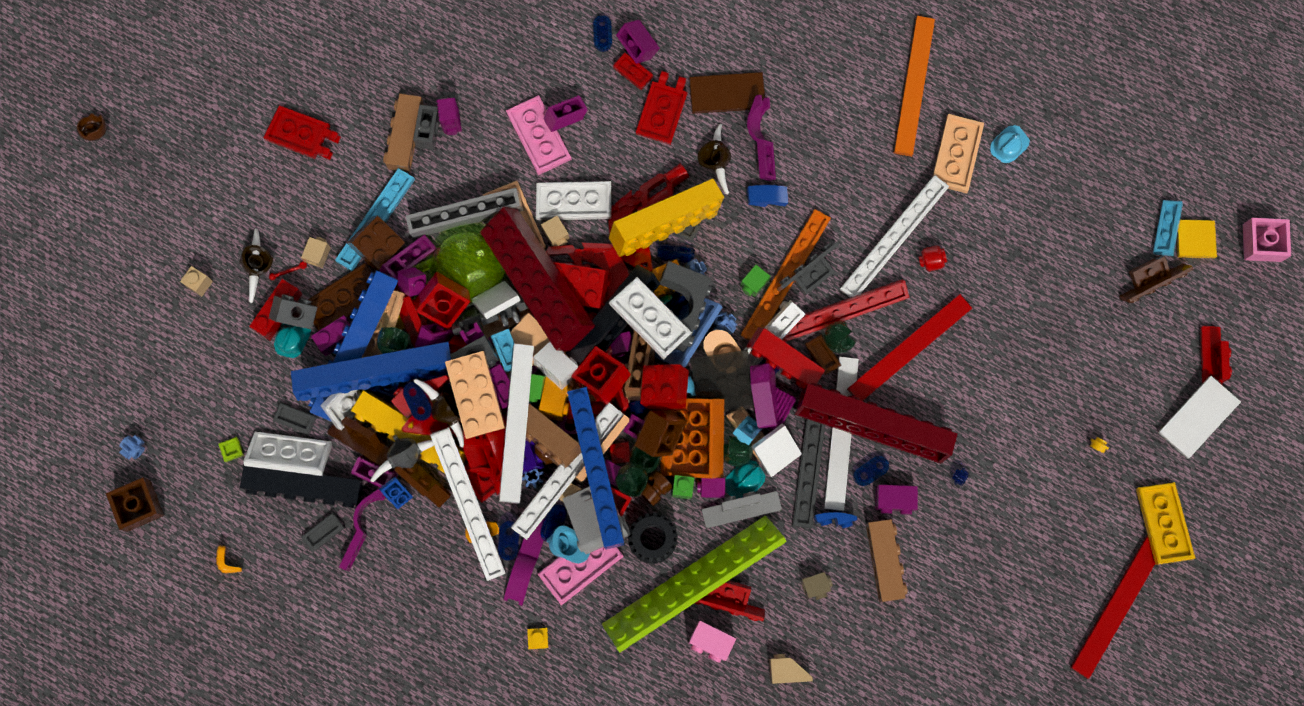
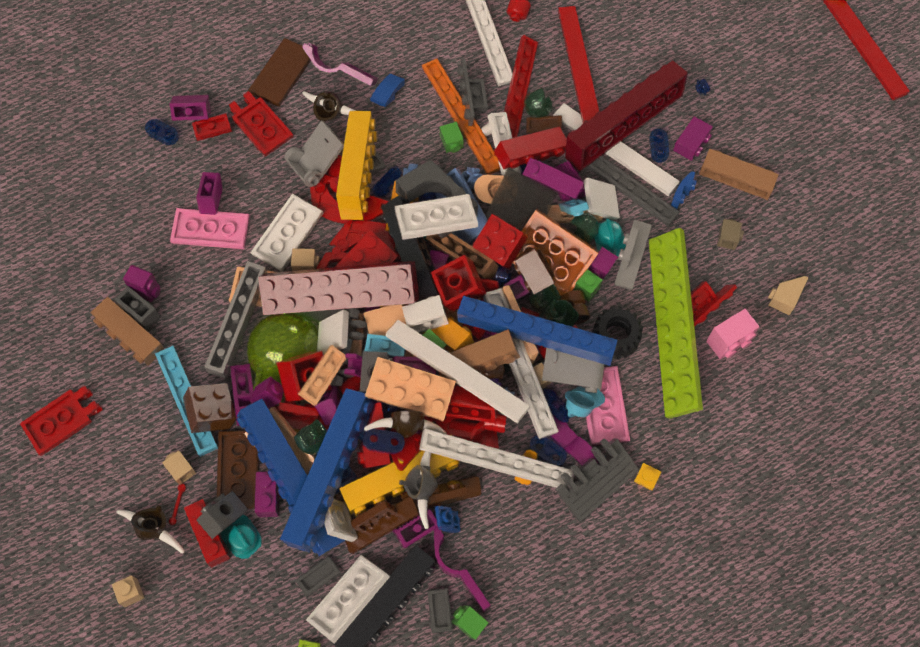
camera: 55 degrees left, 10 degrees down
(324, 561) = (469, 621): none -> bright green brick
(448, 315) = (322, 375): none -> light nougat tile
(505, 597) = (595, 480): none -> dark grey hinge
(656, 176) = (316, 155): none -> light grey door

